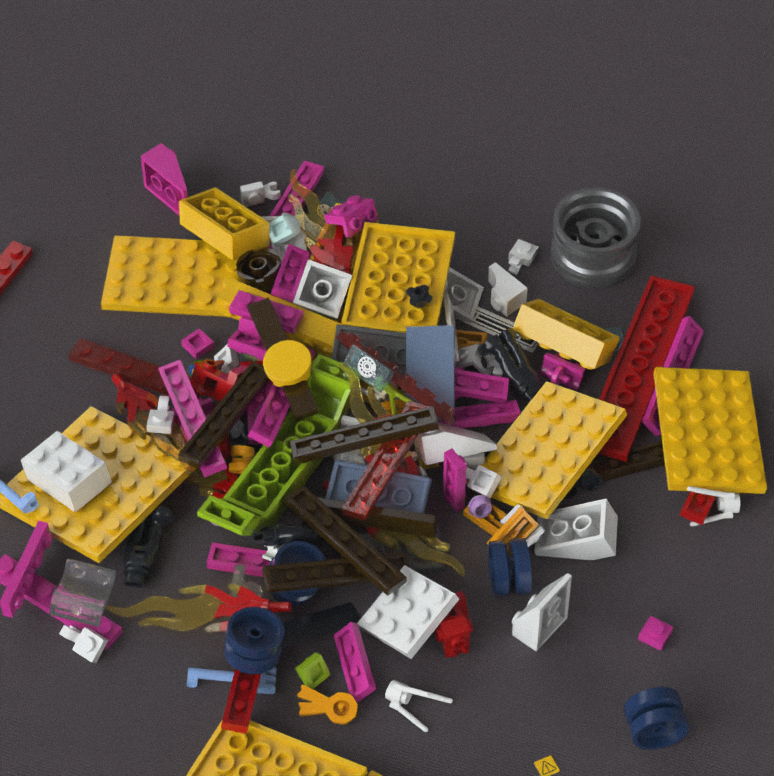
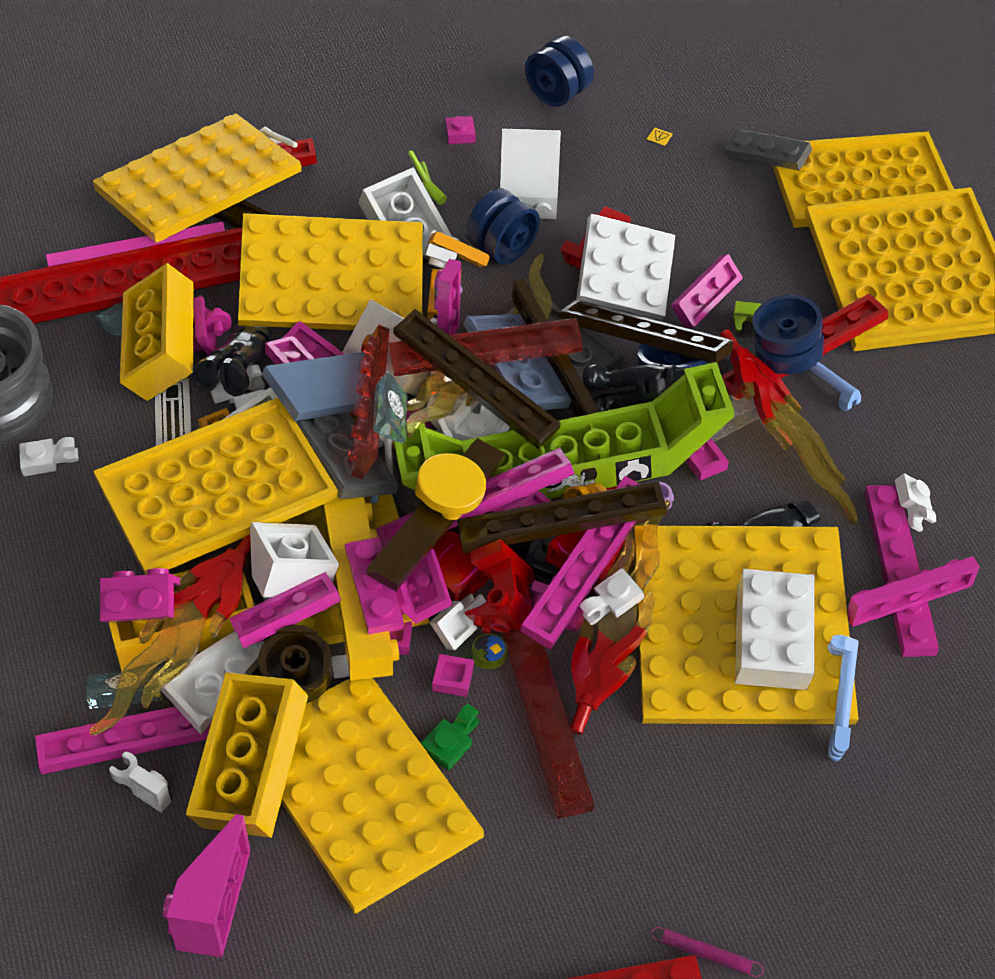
camera: 130 degrees left, 0 degrees up
(83, 592) = (883, 527): clear panel -> none
(164, 322) = (450, 741): none -> green plate
(283, 228) = (208, 665): light aqua plate -> none
(339, 708) = (763, 279): light orange piece -> none
(345, 540) = (607, 338): dark brown tile -> none
(401, 694) = (702, 246): white plant -> none
(419, 296) = (237, 433): black plate -> none
(482, 480) = (421, 292): white plate -> none
(507, 291) = (121, 431): white arch -> none
(605, 571) = (436, 194): none -> lime plant

